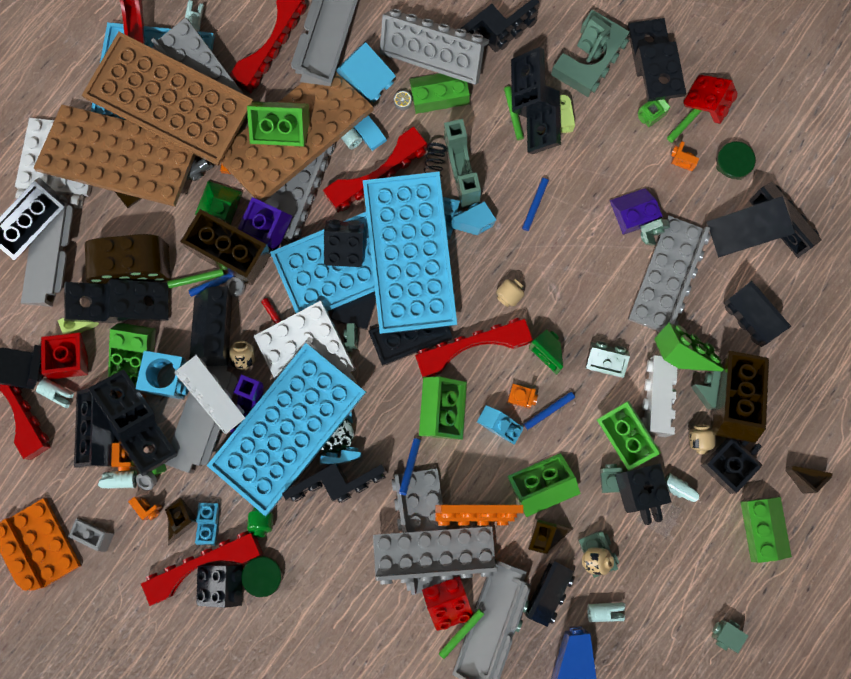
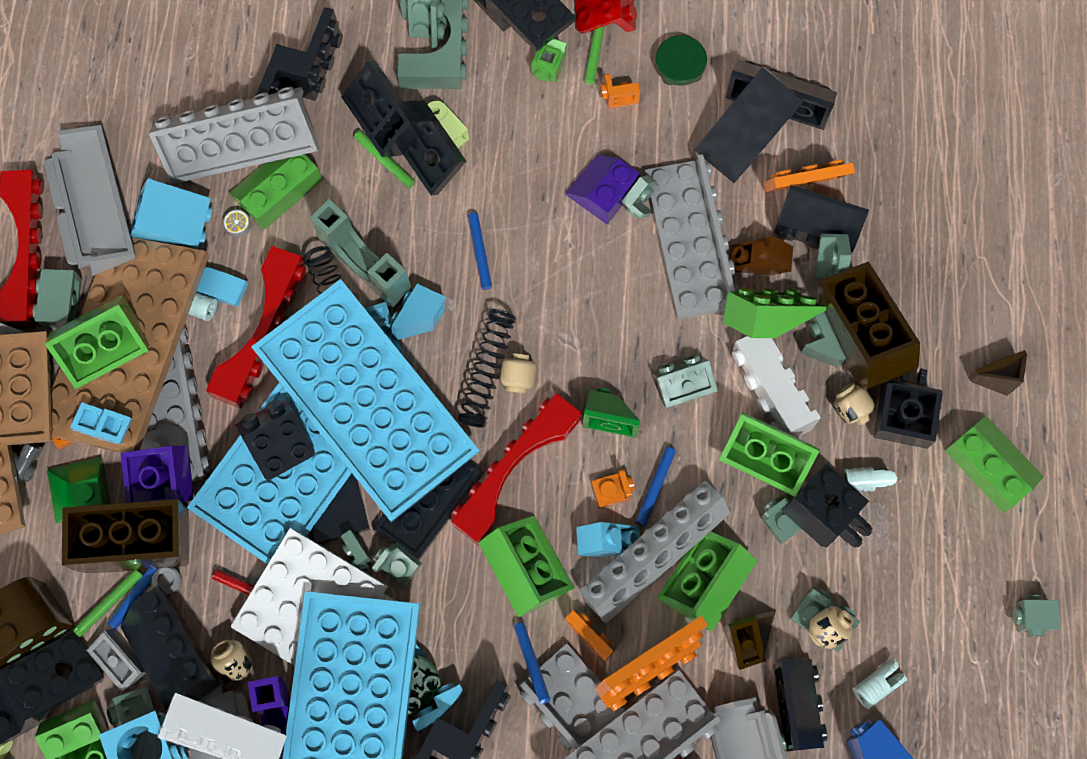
camera: 40 degrees left, 5 degrees down
(172, 345) = (129, 707): none -> sand green bracket
(181, 313) = (116, 659): none -> light grey slope
(251, 173) = (101, 423): none -> medium azure slope
(272, 83) = (57, 298): none -> sand green brick
(369, 359) = (397, 563): none -> sand green bracket
(453, 463) = (581, 625): none -> orange plate
(518, 249) = (477, 419): none -> black piece
(523, 449) = (655, 552): none -> light grey brick
(705, 313) = (762, 256): none -> reddish brown slope
(749, 340) = (833, 255): none -> sand green bracket
(768, 281) = (809, 175): none -> orange plate

